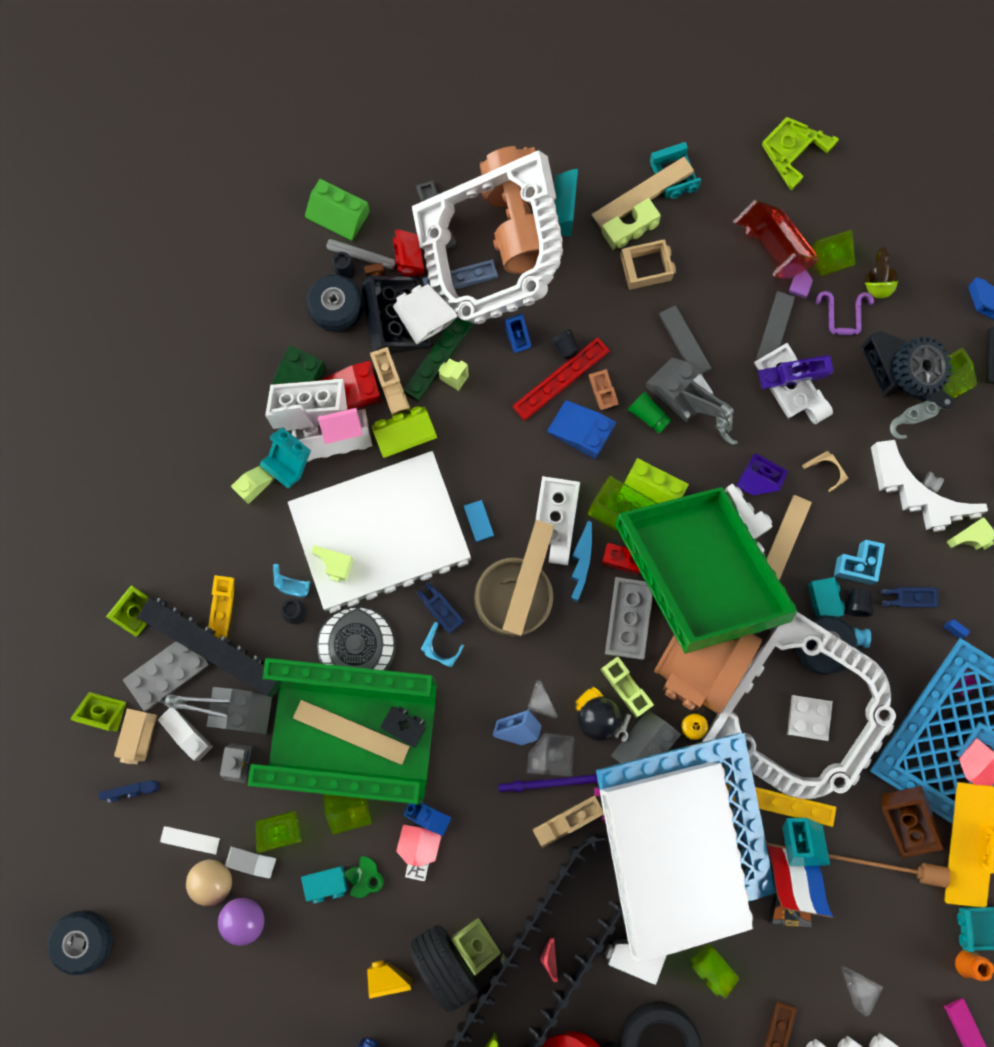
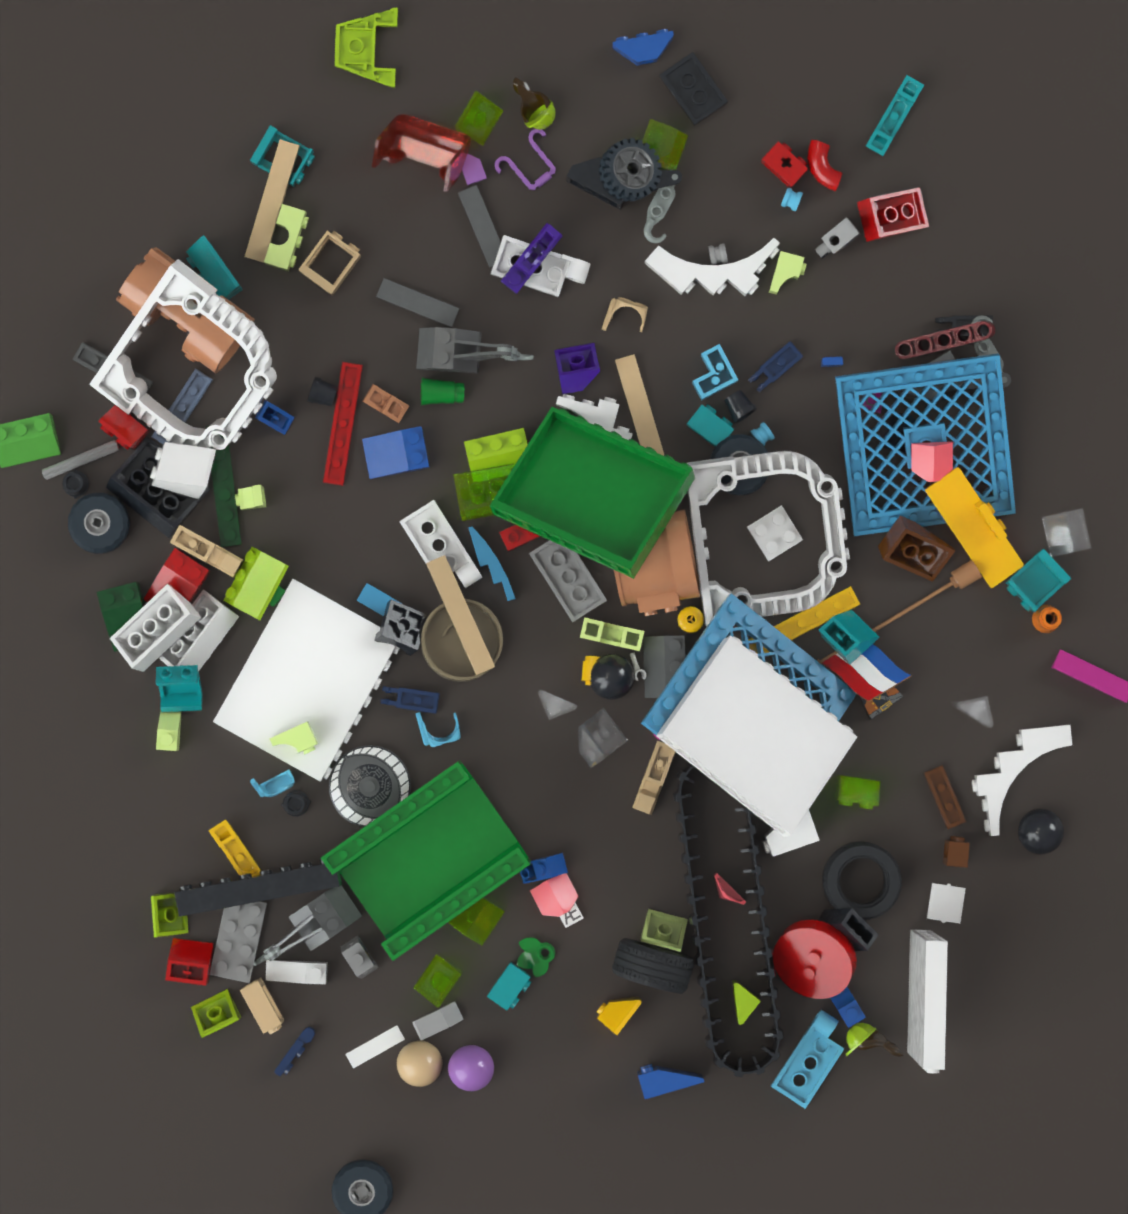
camera: 45 degrees left, 10 degrees up
(115, 658) = (189, 961): none -> red slope
(293, 417) = (156, 650): white piece -> none
(340, 426) = (205, 626): bright pink slope -> none
(351, 732) = (427, 856): tan tile -> none
(375, 269) = (107, 466): reddish brown plate -> none
(392, 725) = (455, 823): black brick -> none
(410, 453) = (277, 596): none -> green slope
(478, 550) = (401, 627): none -> piece
(518, 728) = (554, 740): medium blue slope -> none
(519, 786) = (594, 783): dark purple bar -> none

